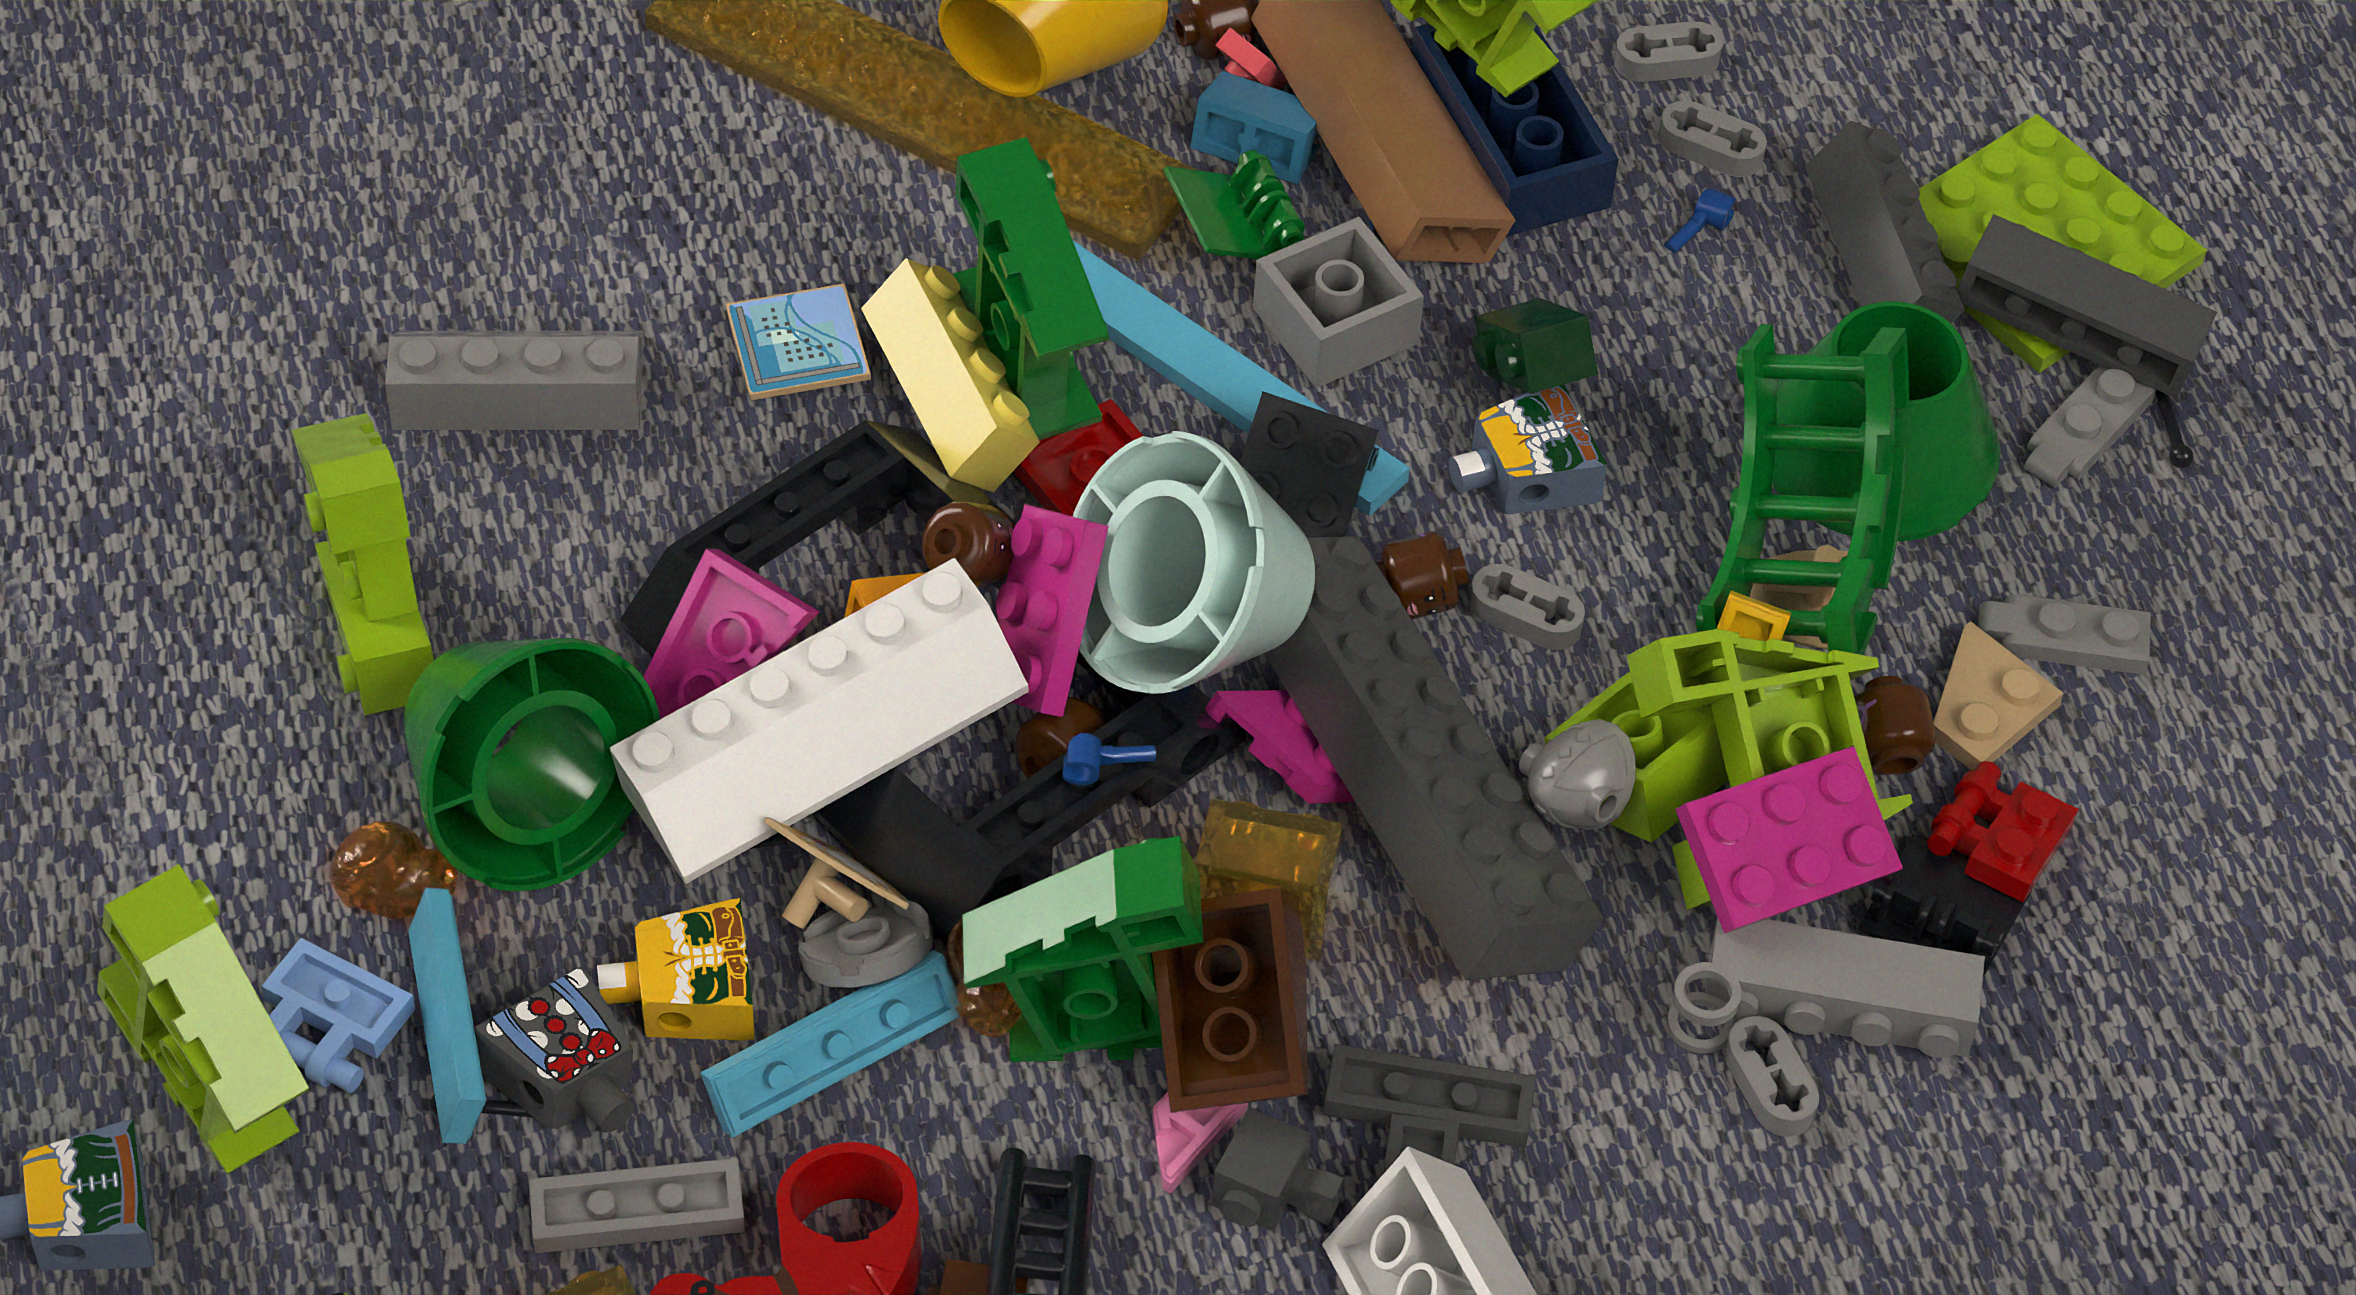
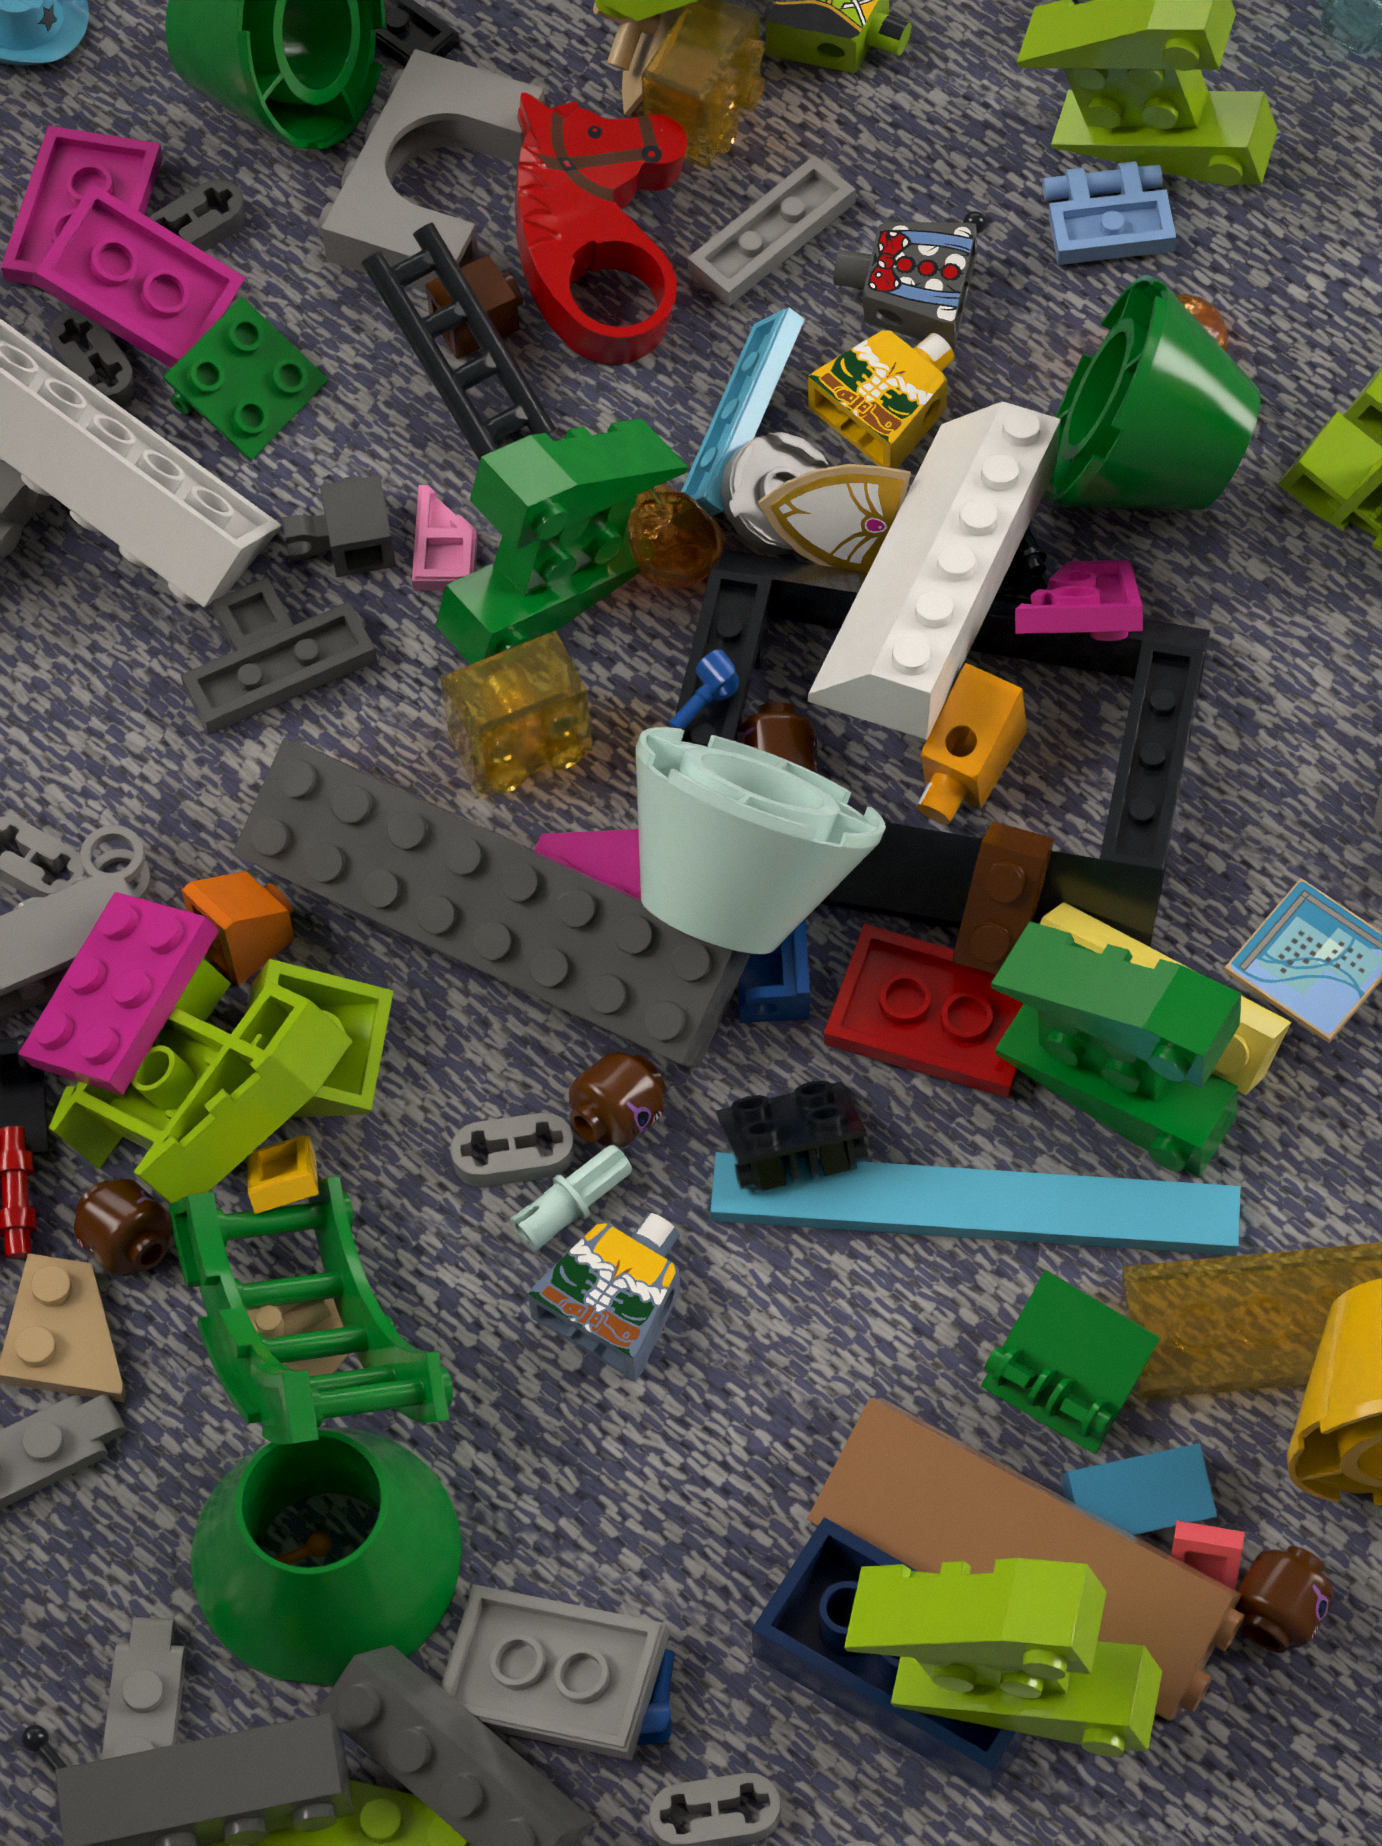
camera: 150 degrees right, 10 degrees up
(446, 1016) = (1016, 246): medium azure tile -> none
(973, 536) = (964, 790): reddish brown head -> none
(1006, 470) = (1001, 895): none -> reddish brown brick
(1048, 601) = (858, 770): dark pink plate -> none
(1236, 1004) = (453, 568): reddish brown slope -> none
(1337, 302) = (895, 1315): light grey brick -> none
(1510, 541) = (570, 1197): none -> light aqua axle
(1534, 345) = (682, 1377): dark green brick -> none
(1579, 772) = (333, 943): light grey helmet -> none
(1637, 873) = (250, 921): none -> orange slope
(1765, 264) = (555, 1670): none -> light grey tile

